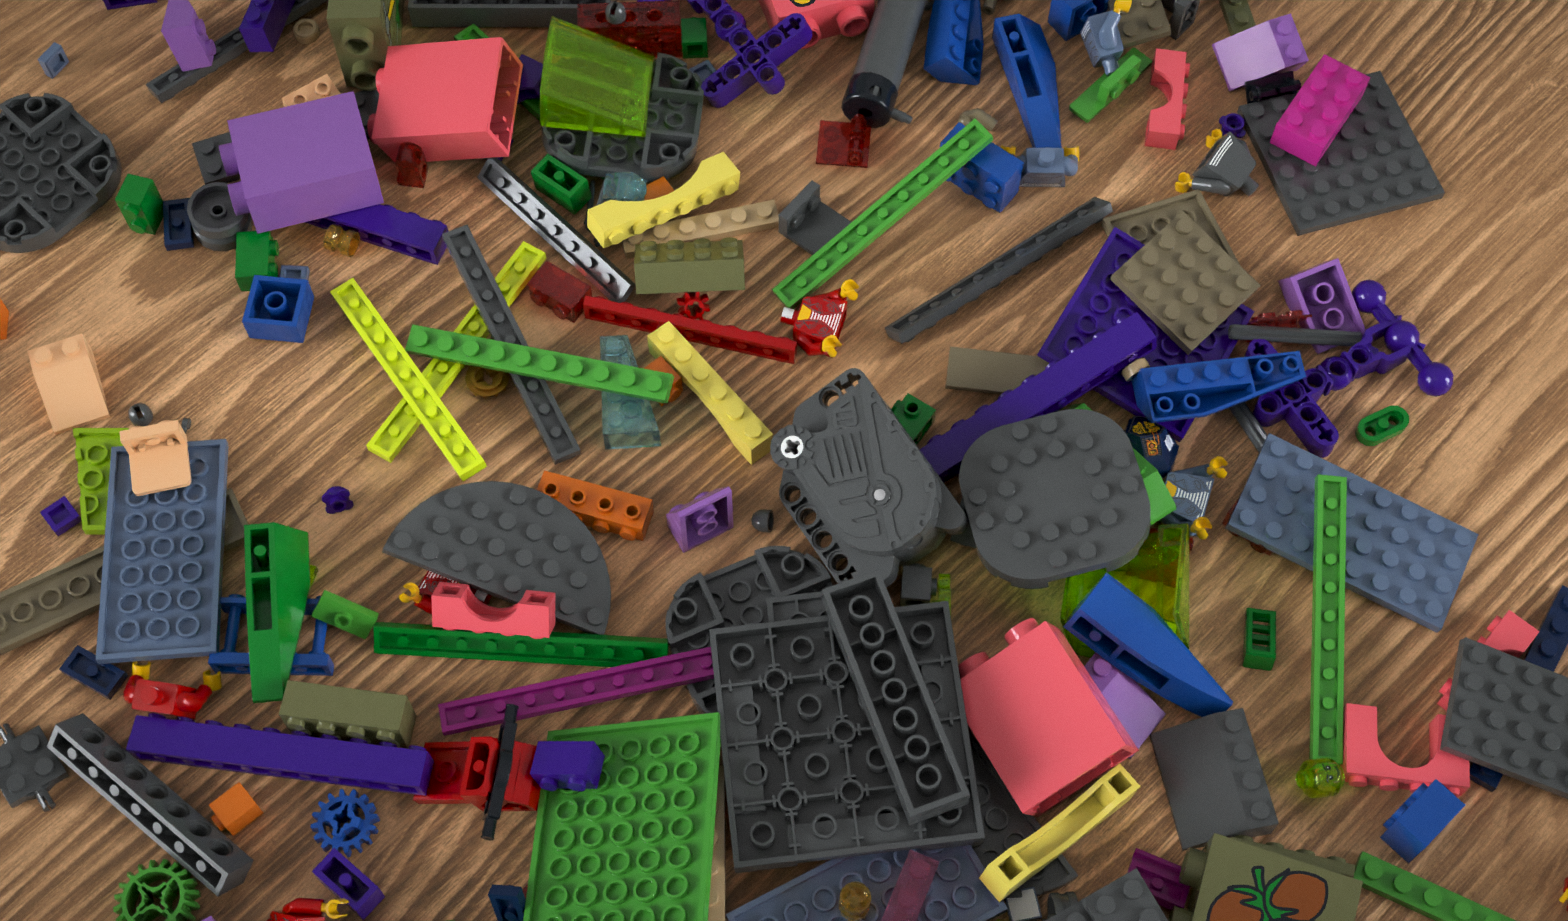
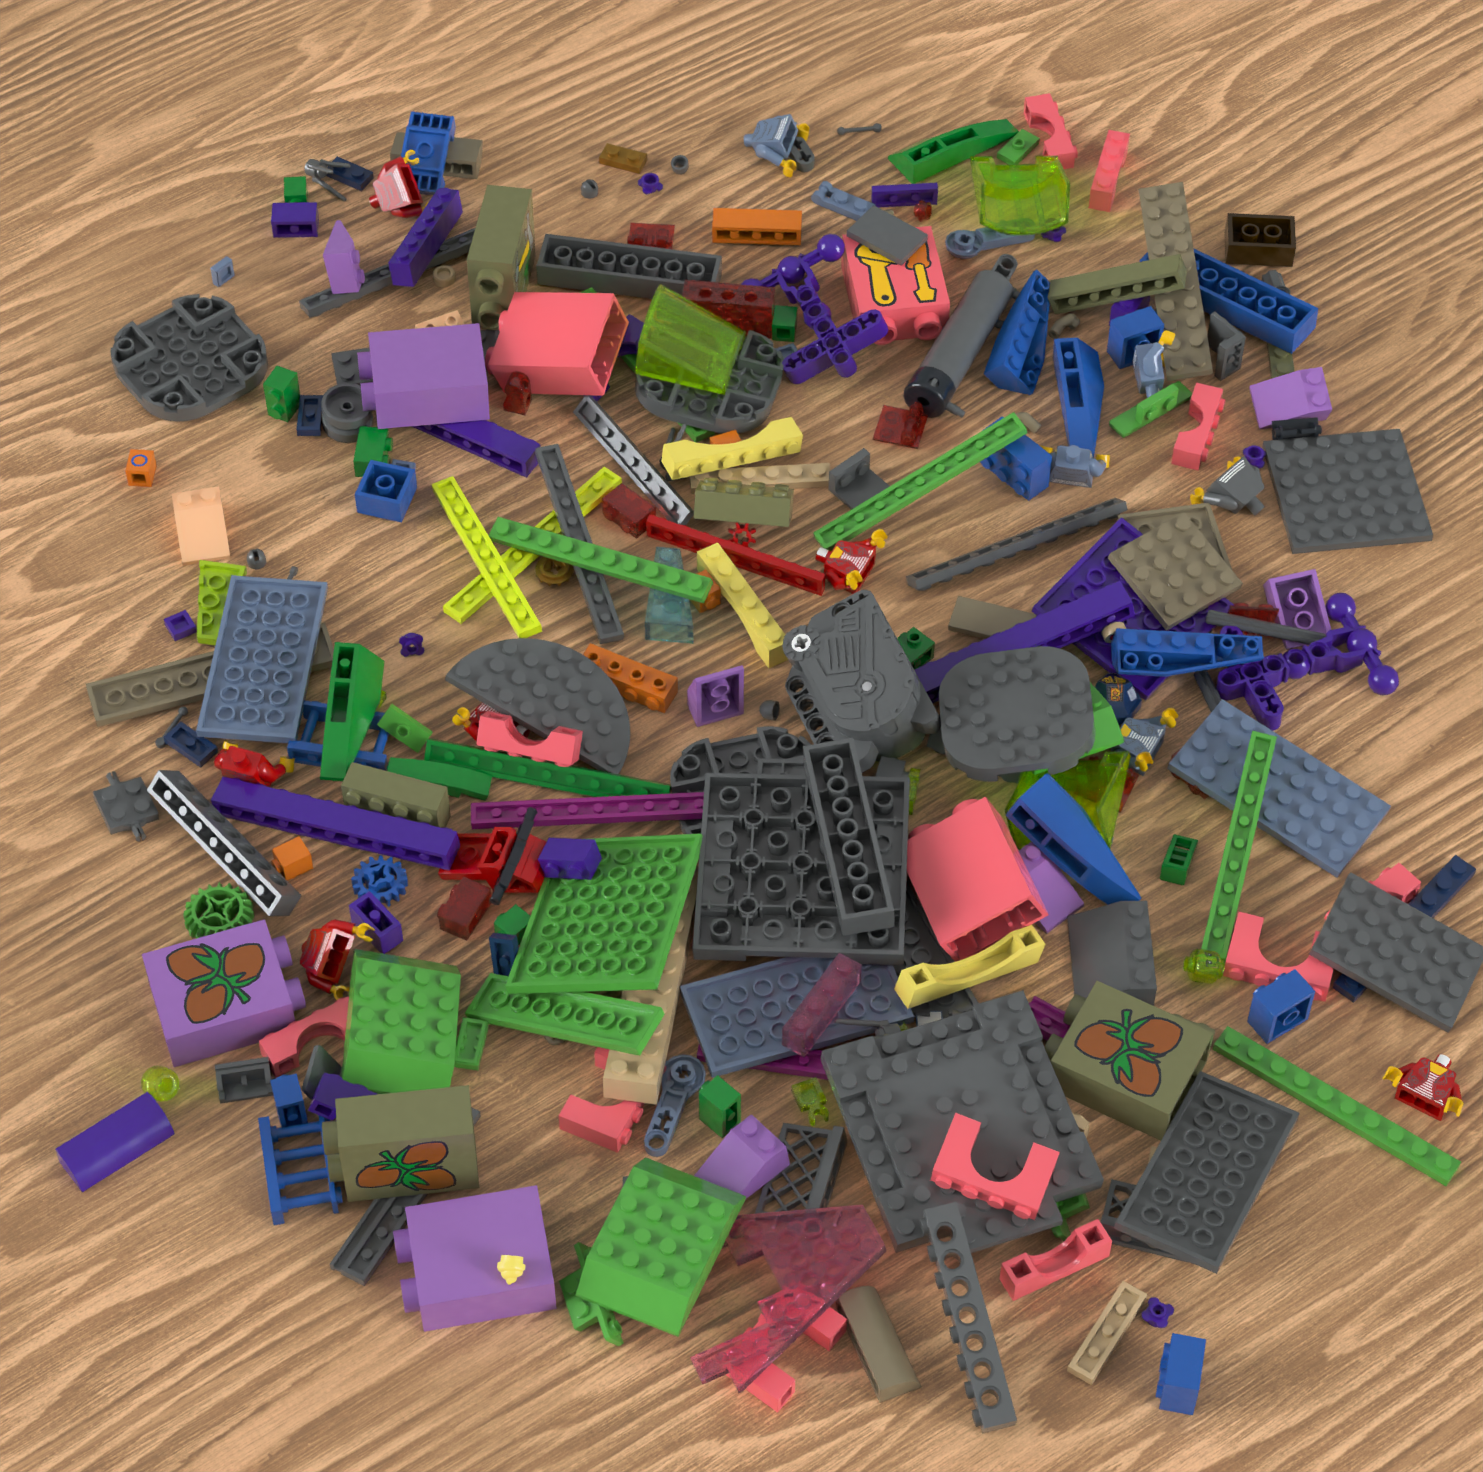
camera: 10 degrees right, 10 degrees down
(79, 628) = (183, 711): none -> dark grey hinge
(157, 457) = (269, 584): light nougat bracket -> none
(341, 240) = (448, 446): clear yellow wheel -> none
(394, 671) = (455, 778): none -> green slope
(451, 842) = (464, 908): none -> clear red brick
(512, 860) = (512, 922): none -> green brick
(561, 184) = (645, 425): green brick -> none
(620, 12) = (720, 291): dark grey hinge -> none
(624, 187) = (699, 431): clear light blue brick -> none
(854, 895) = (787, 988): clear yellow wheel -> none
(1319, 110) = (1331, 450): dark pink brick -> none
(1380, 427) = (1326, 711): green plate -> none

